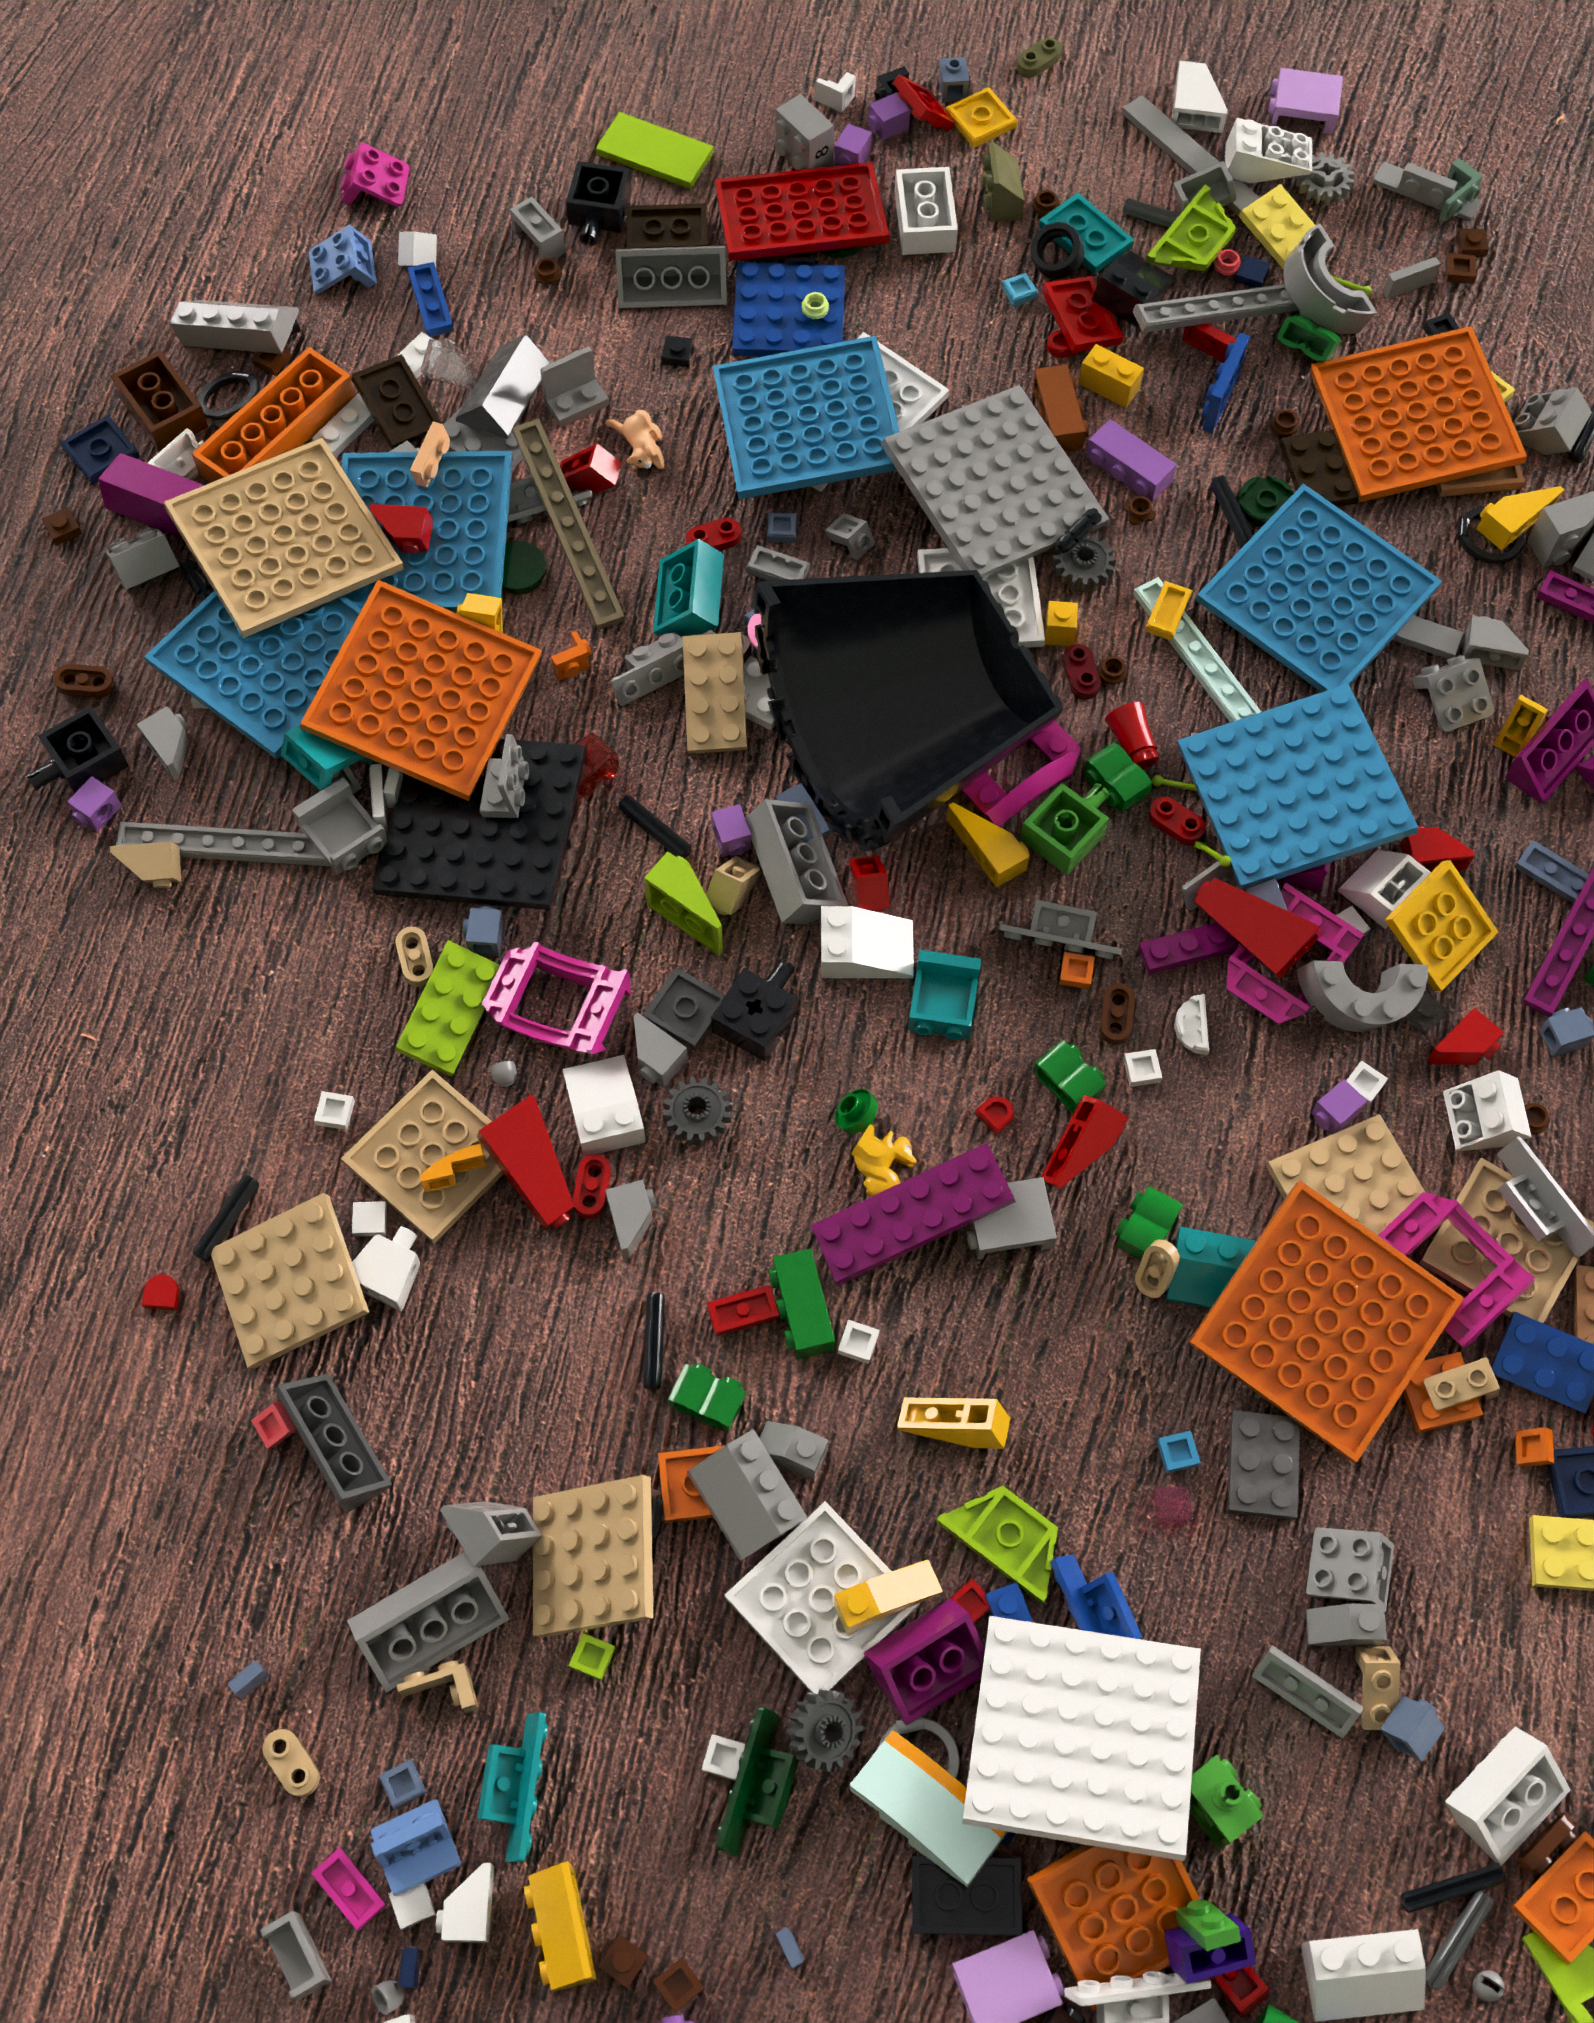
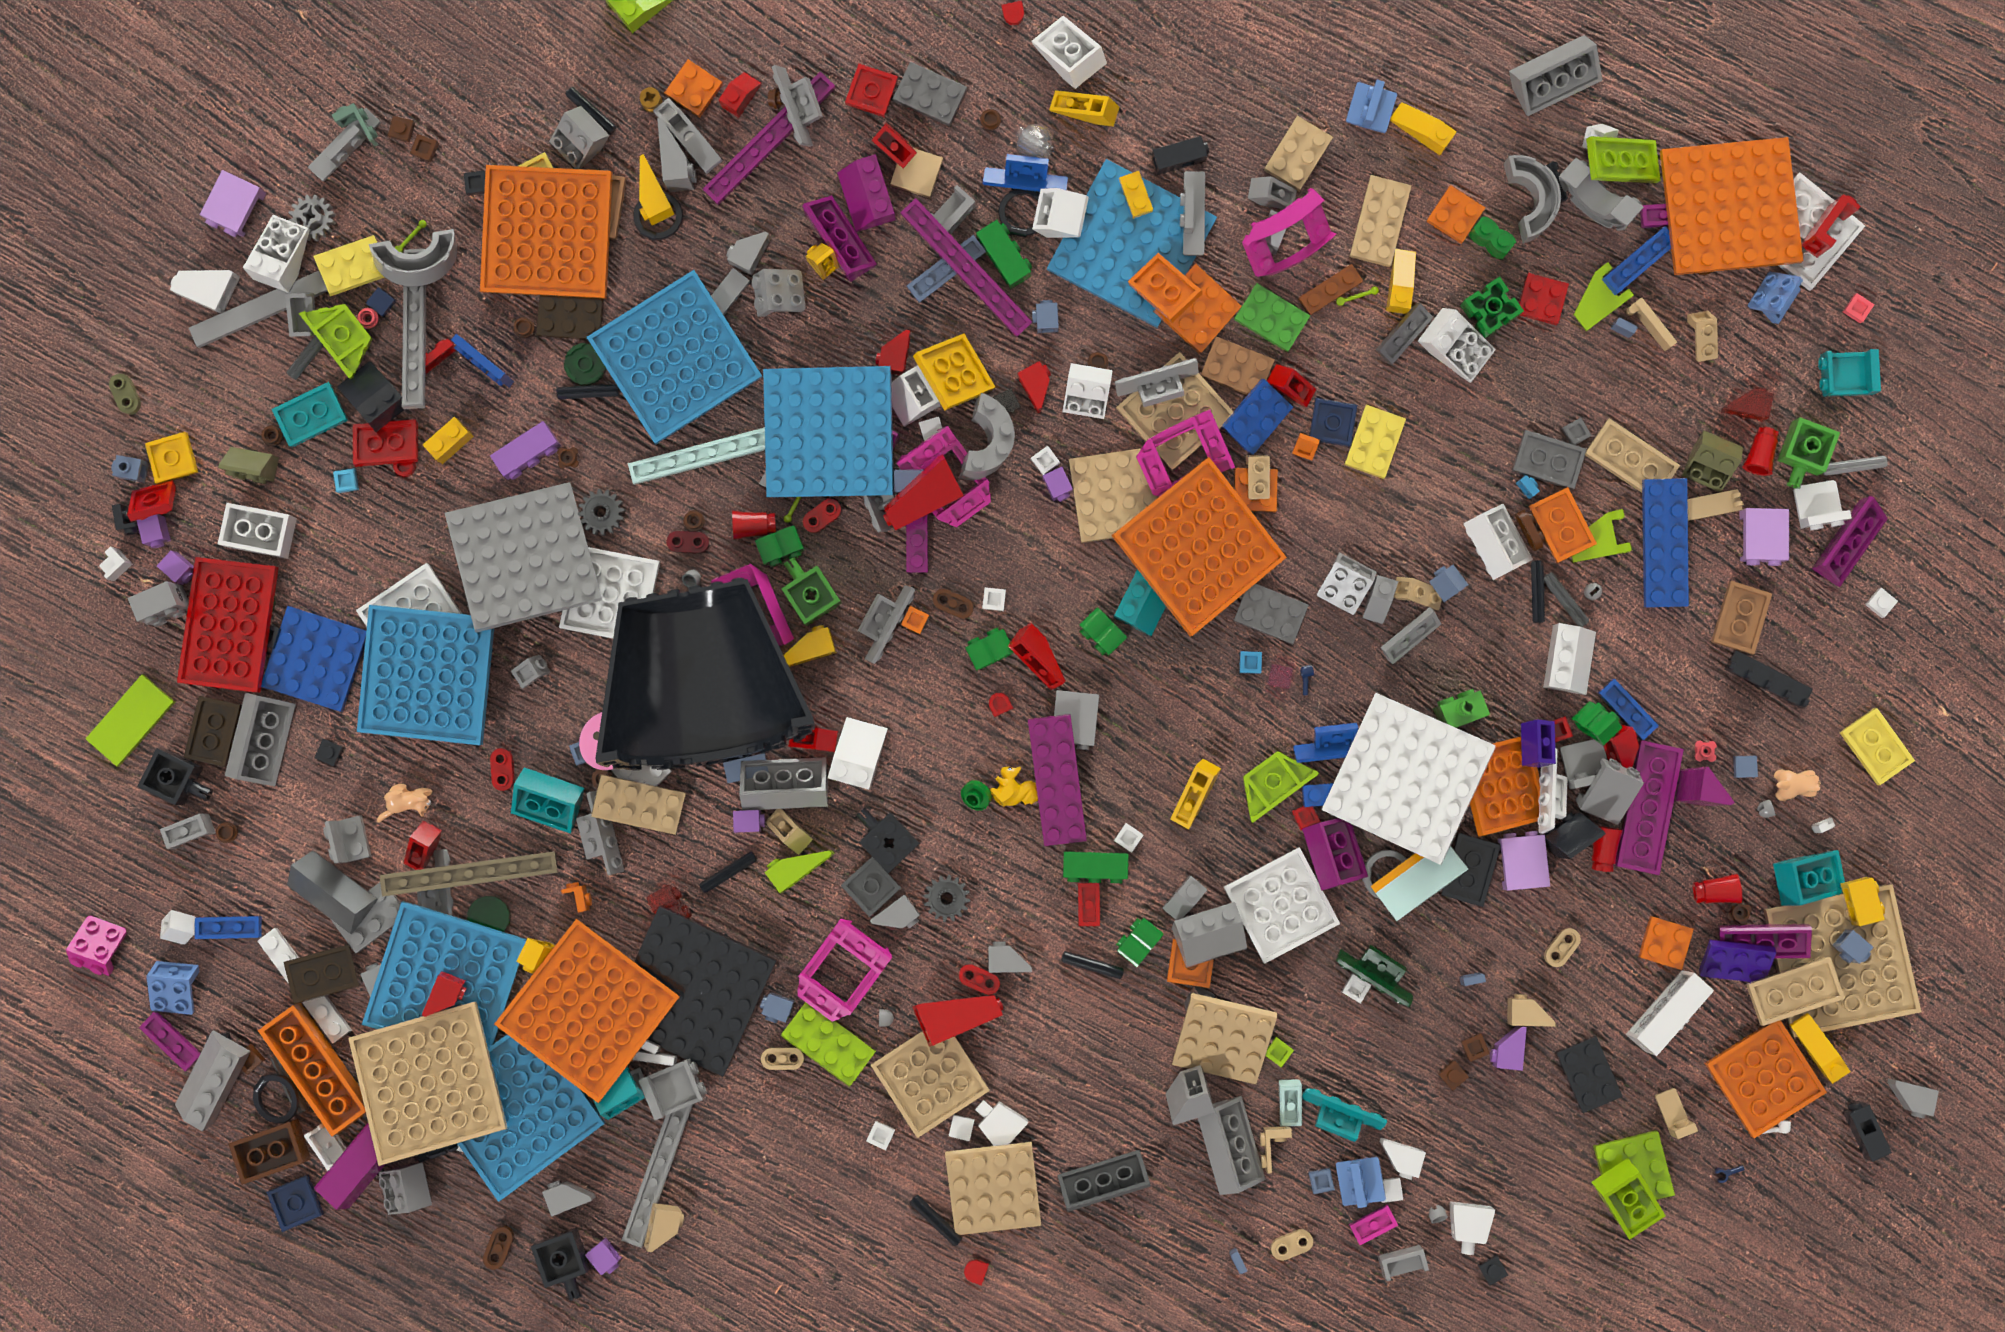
camera: 65 degrees left, 20 degrees up
(61, 526) = (357, 1242): reddish brown plate -> none
(274, 1425) = (1084, 1216): coral plate -> none
(276, 274) = (170, 1041): none -> magenta plate
(410, 1968) = (1426, 1198): dark blue tile -> none
(427, 460) = (396, 966): light nougat plate -> none
(443, 1172) = (949, 1072): light orange slope -> none
(447, 364) = (297, 927): clear slope -> none
(504, 782) = (677, 970): light grey bracket -> none
(516, 1699) = (1290, 1102): none -> light aqua slope
(560, 1927) = (1428, 1107): yellow slope -> none
(604, 1105) = (923, 957): white slope -> none
(776, 566) = (543, 730): light grey plate -> none
(782, 527) = (508, 717): sand blue tile -> none
(815, 305) = (319, 637): yellowish green plate -> none
(819, 1712) = (1359, 926): dark grey gear -> none
(885, 1595) = (1293, 867): slope -> none
(944, 995) = (909, 713): teal panel -> none
(1044, 236) = (322, 459): black tyre -> none
(1059, 406) = (464, 486): dark orange brick -> none
(1061, 623) = (648, 545): yellow brick -> none
(1078, 530) = (579, 509): black axle -> none
(1157, 1268) = (1135, 637): tan plate -> none
(1168, 610) = (659, 466): yellow tile -> none
(1192, 1025) = (974, 557): white plate -> none
(1193, 1543) = (1306, 671): none -> dark blue hand
(1207, 1925) = (1528, 742): bright green plate -> none
(1225, 861) = (844, 506): lime hinge -> none
(1303, 334) = (458, 284): green brick -> none
(1411, 278) = (423, 188): light grey tile -> none

